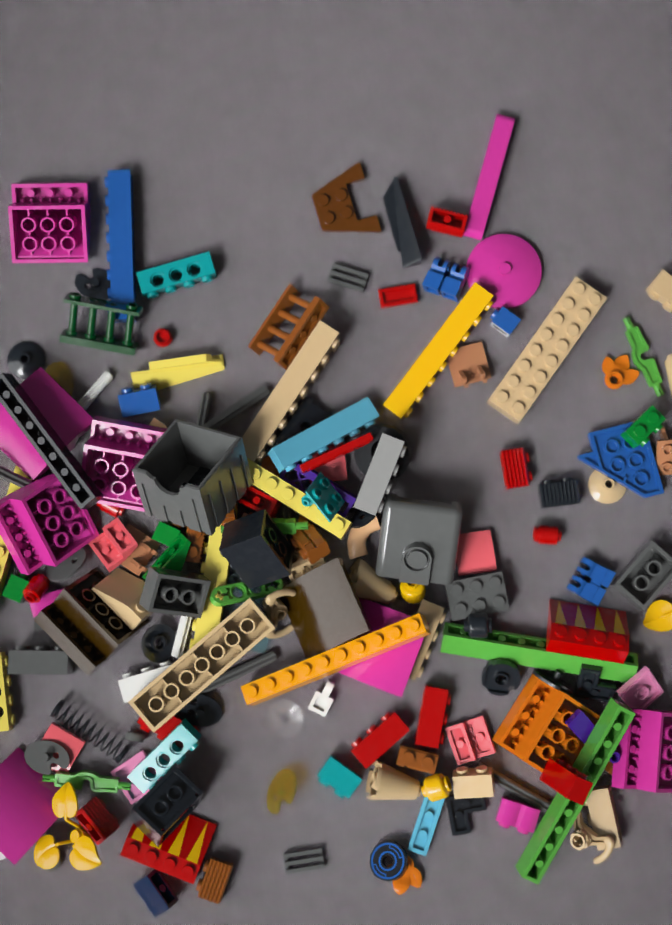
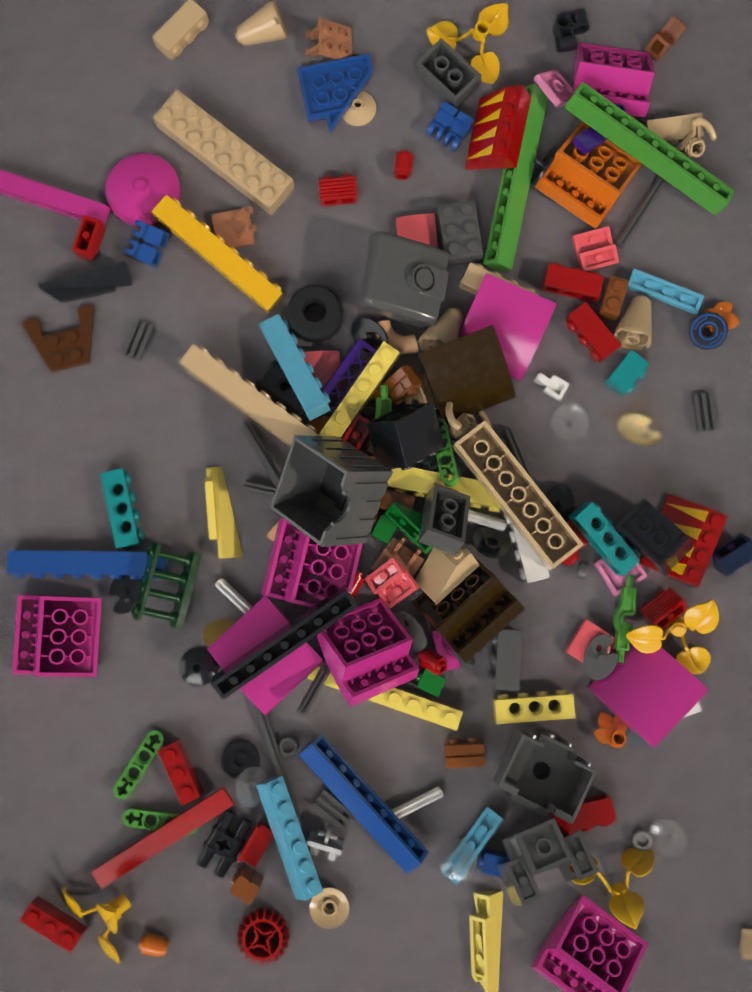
camera: 90 degrees left, 0 degrees up
(55, 712) = (598, 583): black piece -> none
(139, 400) = (247, 551): blue brick -> none
(162, 337) = (185, 526): red plate -> none
(215, 879) = (722, 497): dark orange brick -> none
(295, 340) = (197, 389): dark orange fence -> none
(323, 496) = (356, 365): teal hinge -> none
(336, 453) = (314, 352): red tile -> none
(336, 659) = (517, 365): light orange brick -> none
(379, 474) = (336, 309): light grey brick -> none
(397, 296) = (160, 292): red tile -> none
(412, 592) = (454, 293): yellow head -> none
(436, 787) = (641, 279): yellow head -> none
(458, 813) = (659, 264): black tile -> none
(473, 782) = (636, 246): tan brick -> none
(478, 625) = (489, 228): black head -> none
(500, 667) = (529, 215): black plate -> none
(504, 321) = (193, 190): blue brick -> none
(518, 815) = (667, 209): dark pink brick -> none
(558, 493) = (364, 151): black brick -> none
(566, 780) = (642, 150): red brick -> none
(590, 687) = (548, 133): black tile -> none
(620, 370) = (248, 88): orange plate -> none
(642, 427) = (305, 64): green brick -> none
(647, 366) = (226, 69): bright green piece -> none

